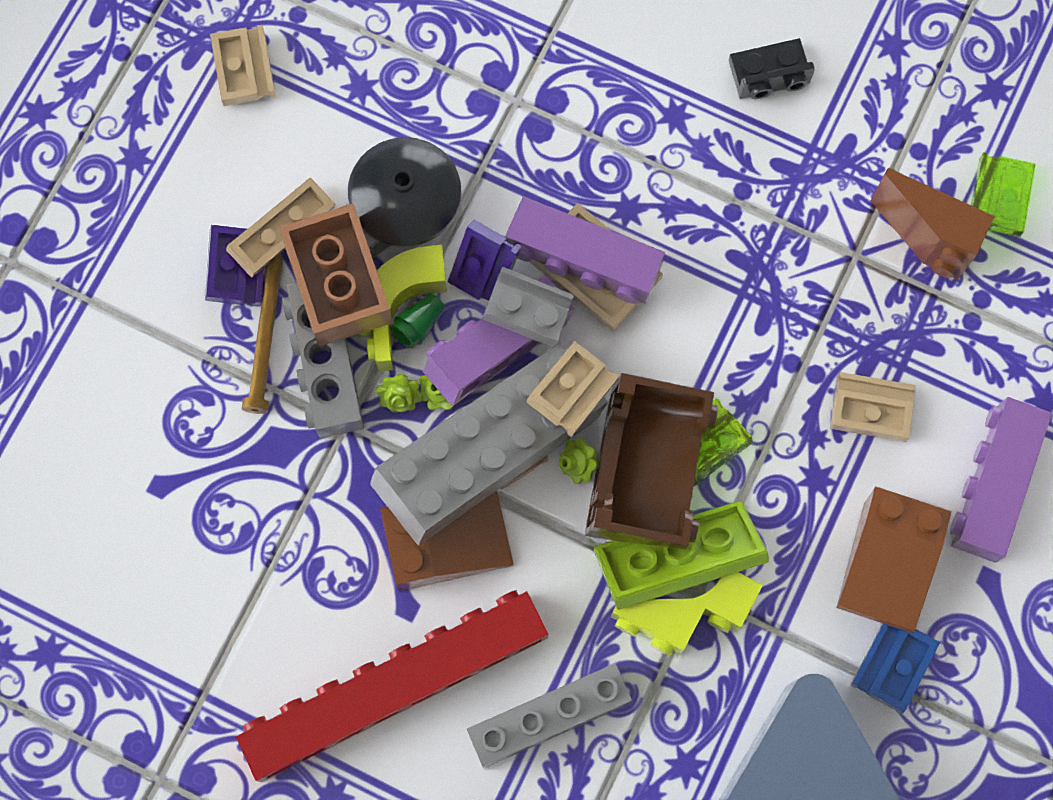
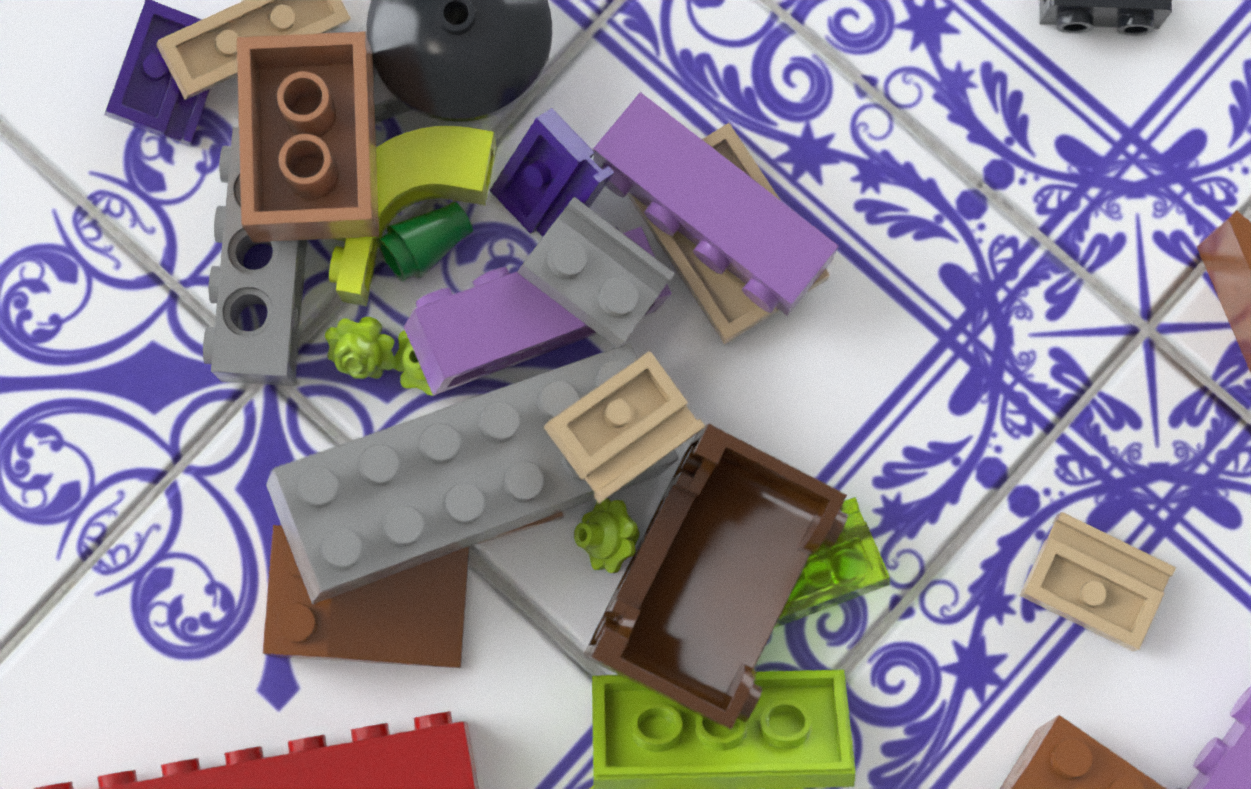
camera: 15 degrees right, 5 degrees up
(255, 402) = (175, 210): pearl gold bar -> none

